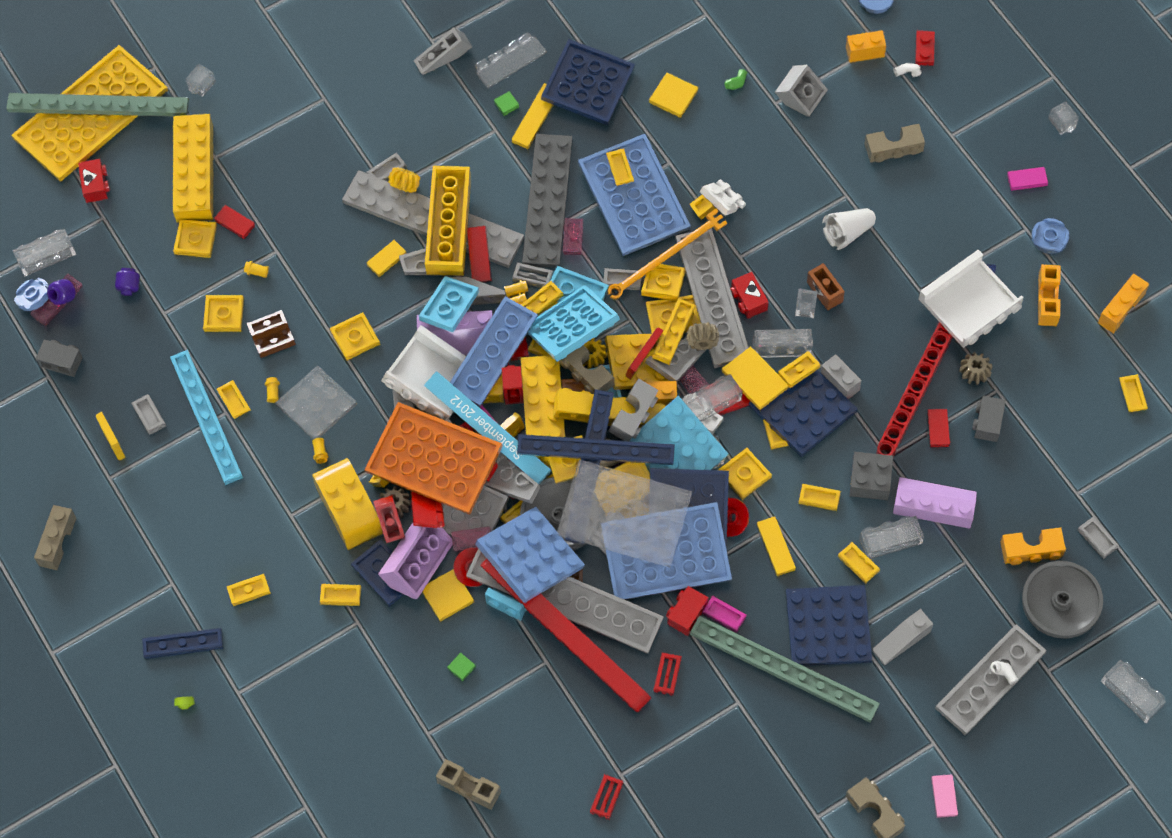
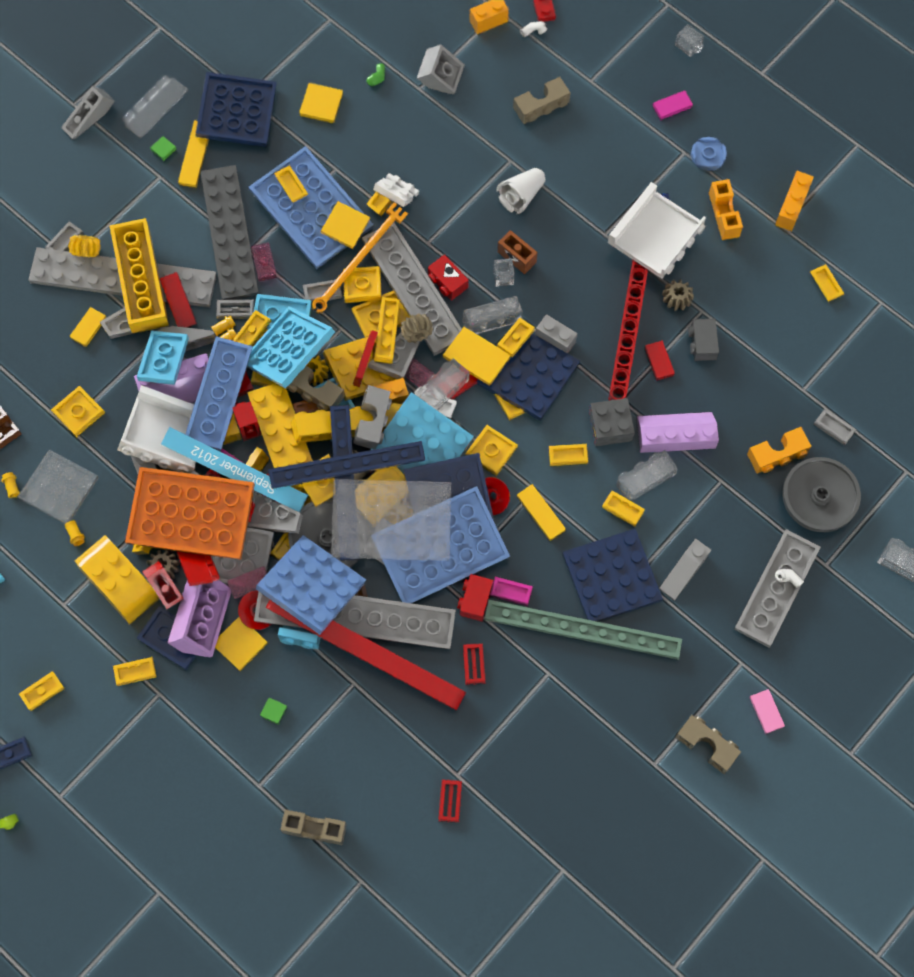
camera: 20 degrees left, 5 degrees up
(662, 219) = (345, 225): none -> yellow tile

